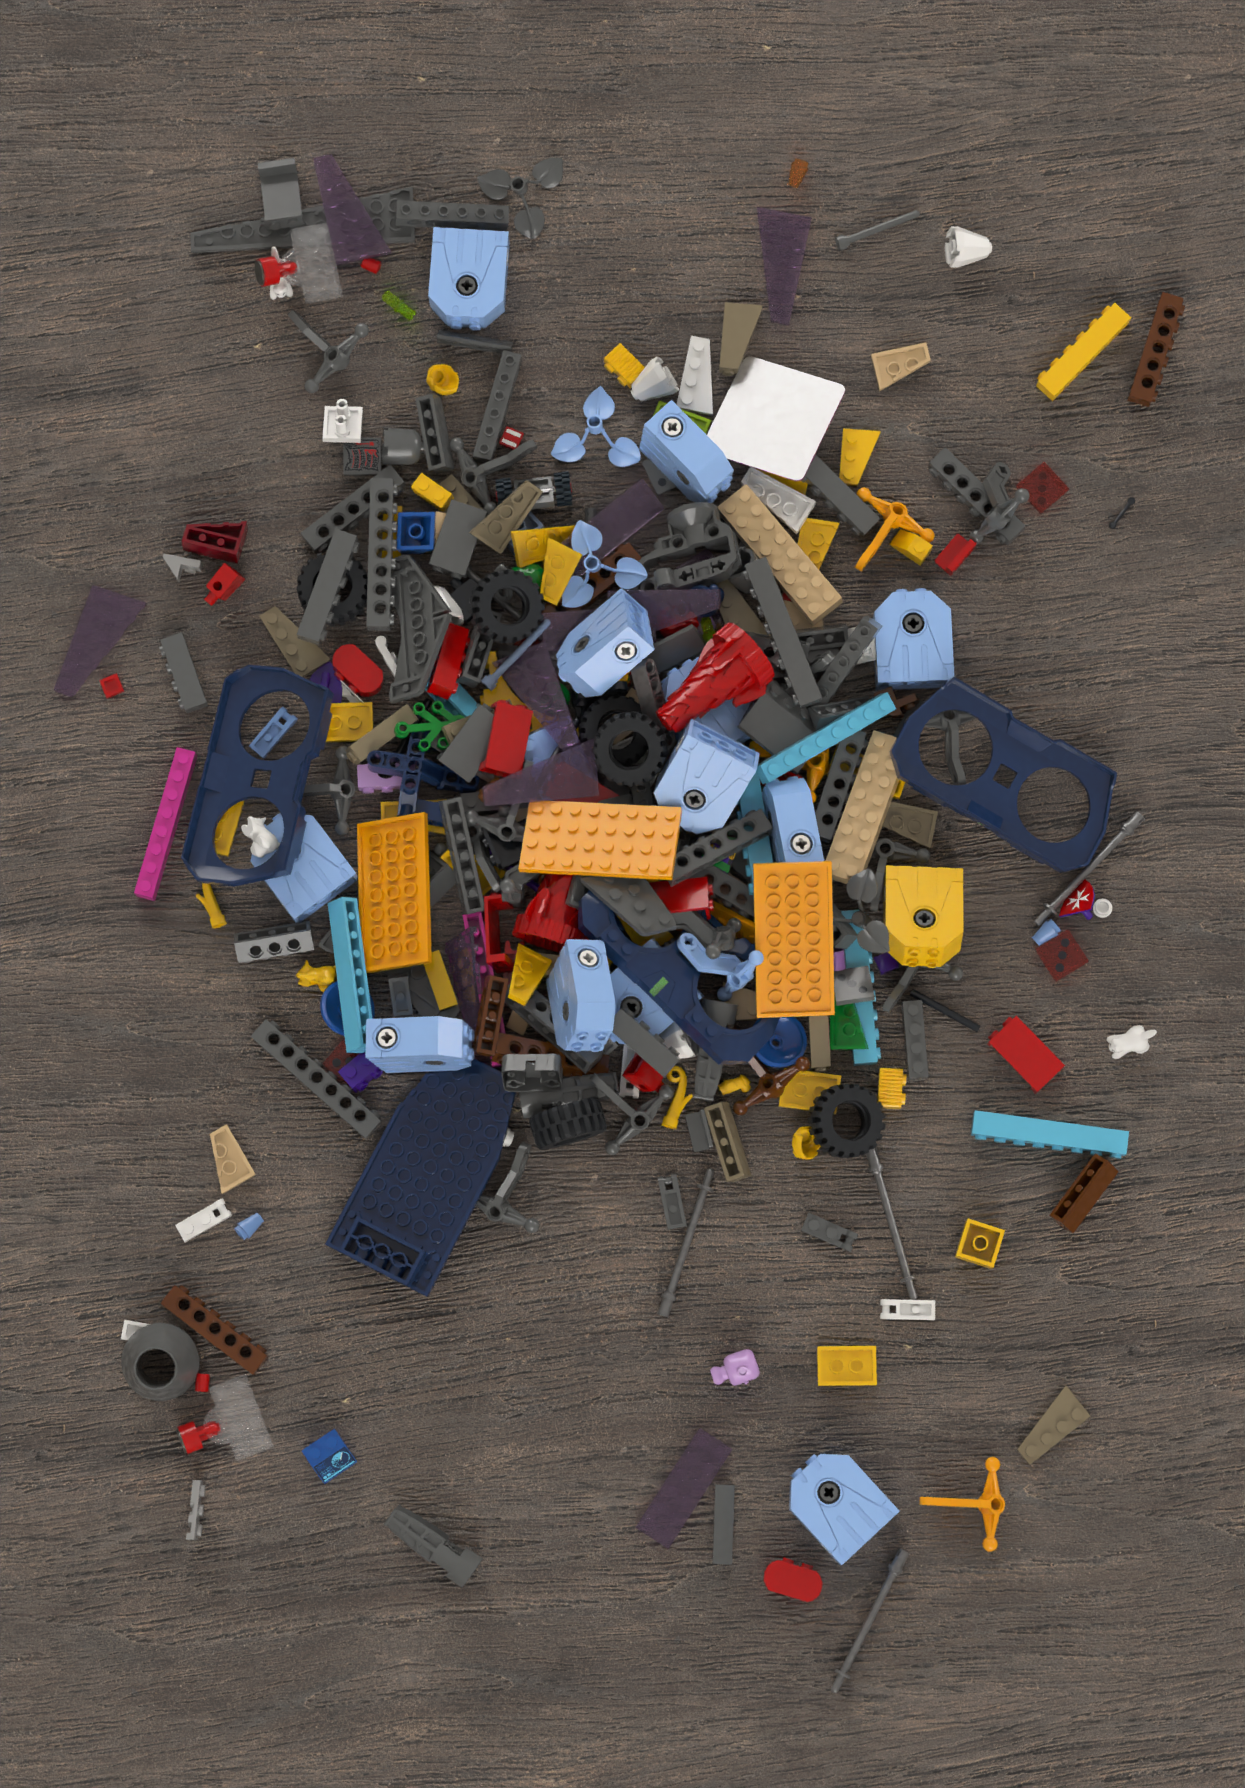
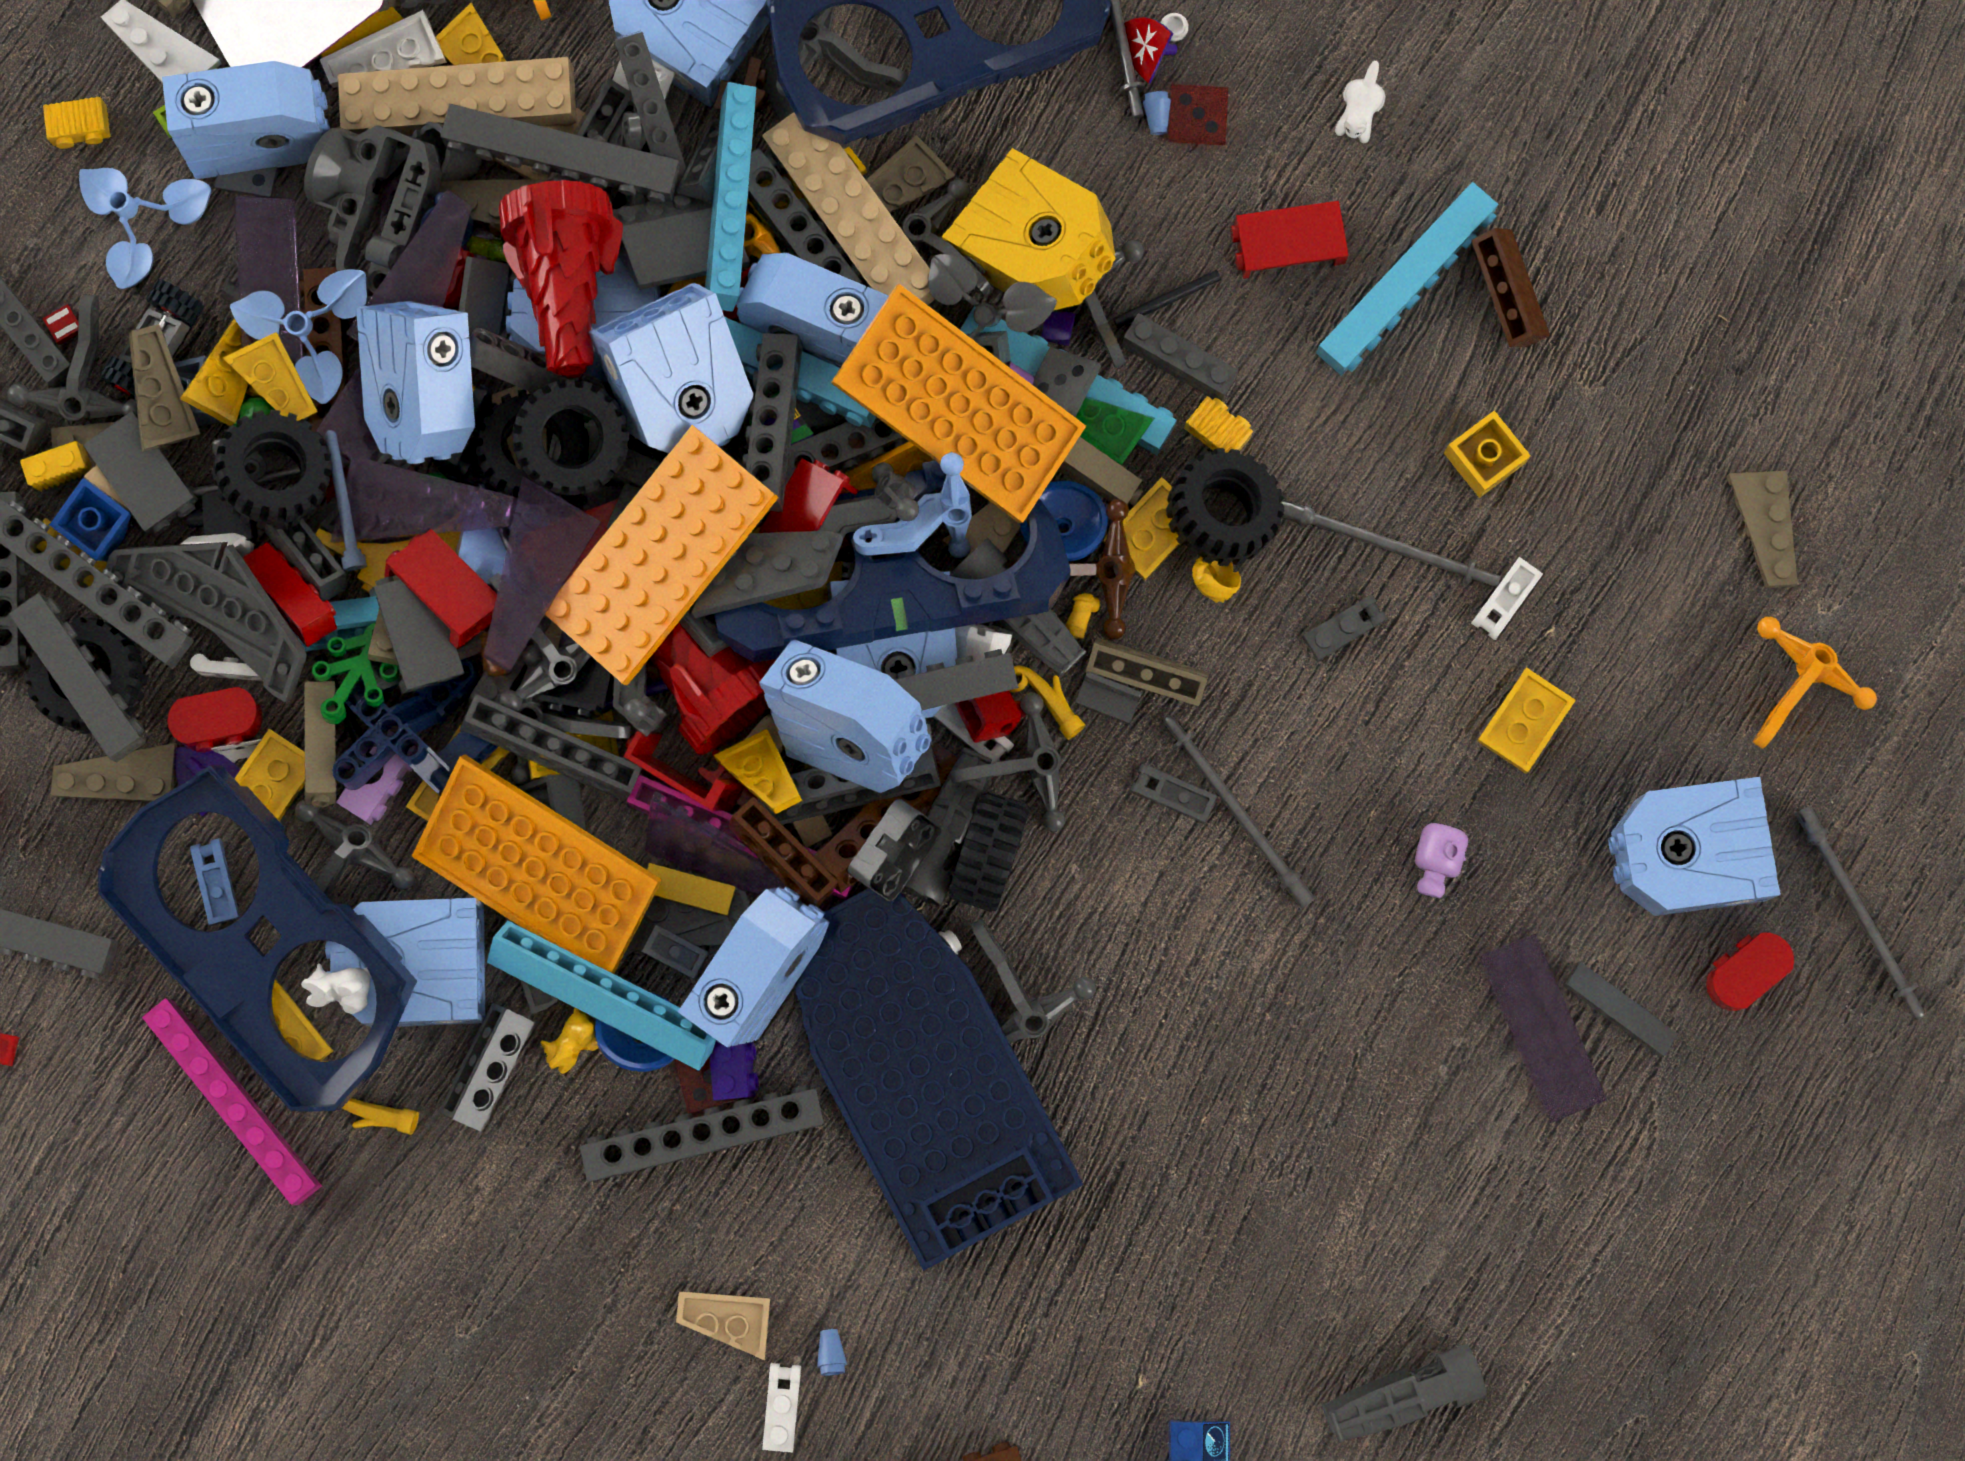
camera: 60 degrees left, 0 degrees up
(654, 382) = (124, 100): white cone -> none

